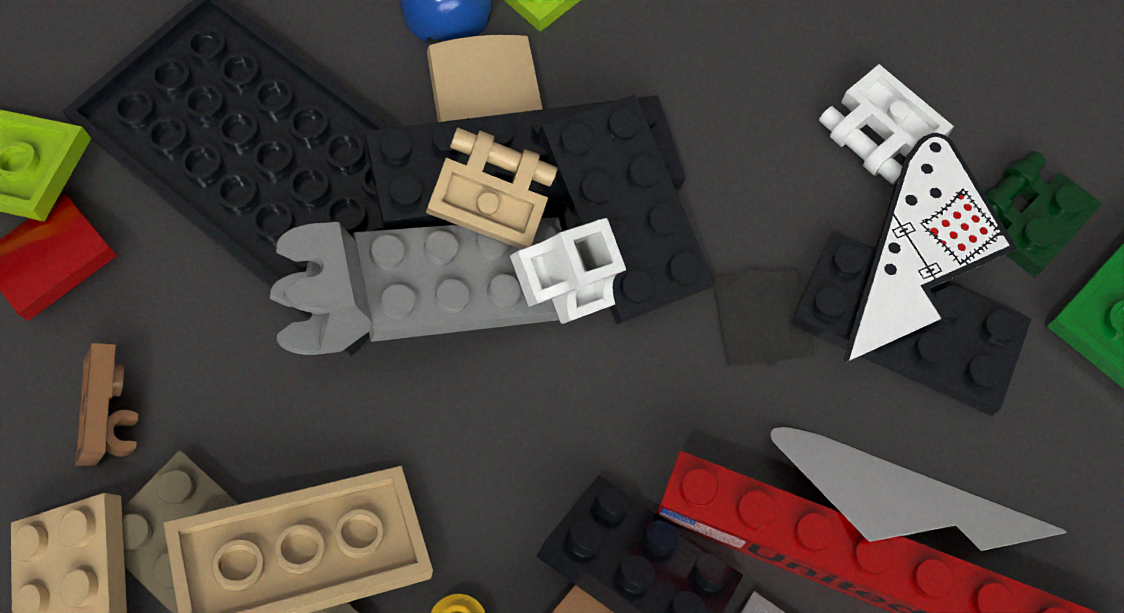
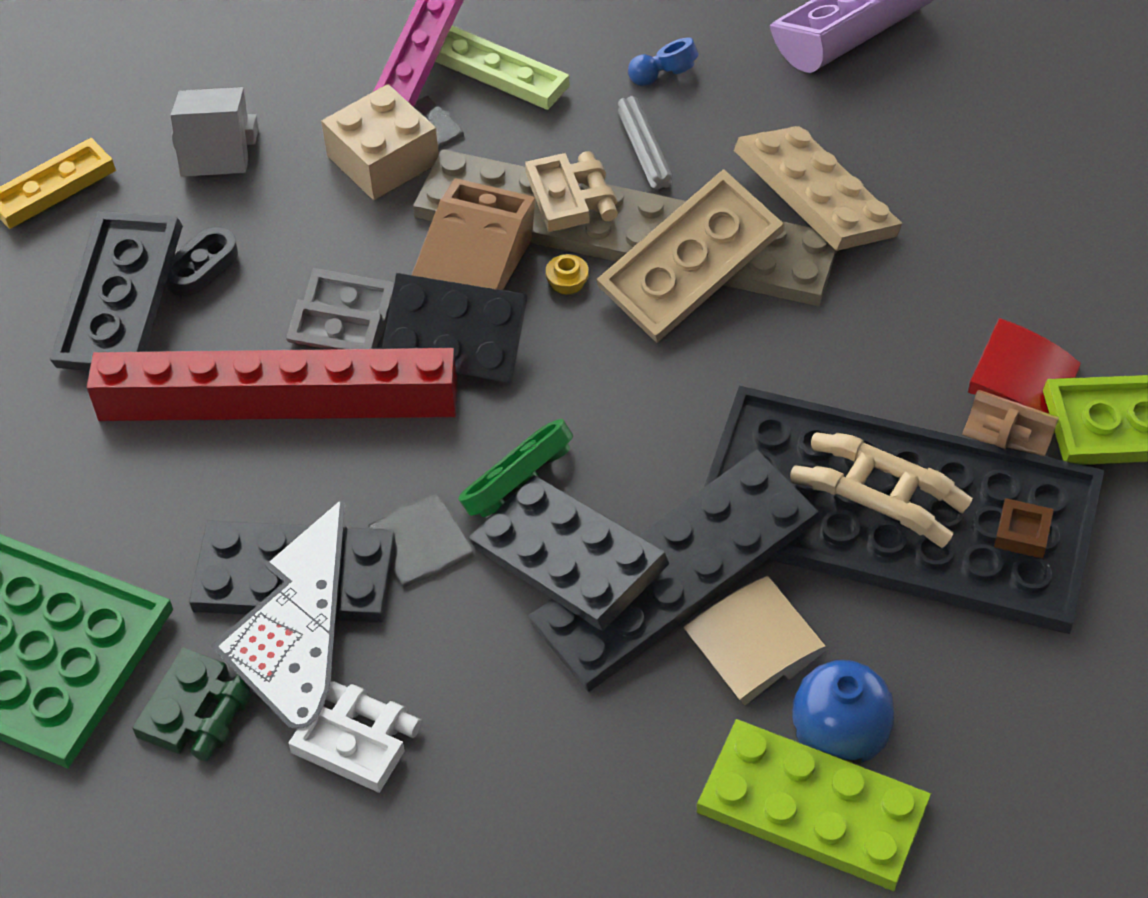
camera: 160 degrees right, 15 degrees down
(95, 429) = (906, 309): medium nougat plate -> none
(110, 185) = (1010, 424): none -> medium nougat hips
(184, 62) = (1023, 528): none -> reddish brown plate
(278, 182) = (895, 505): none -> tan piece
(400, 284) = (700, 430): light grey hinge -> none
(486, 202) = (677, 482): tan plate -> none
(572, 270) = (590, 469): white brick -> none
(656, 346) = (516, 468): none -> green plate
(895, 501) = (288, 429): white sticker -> none

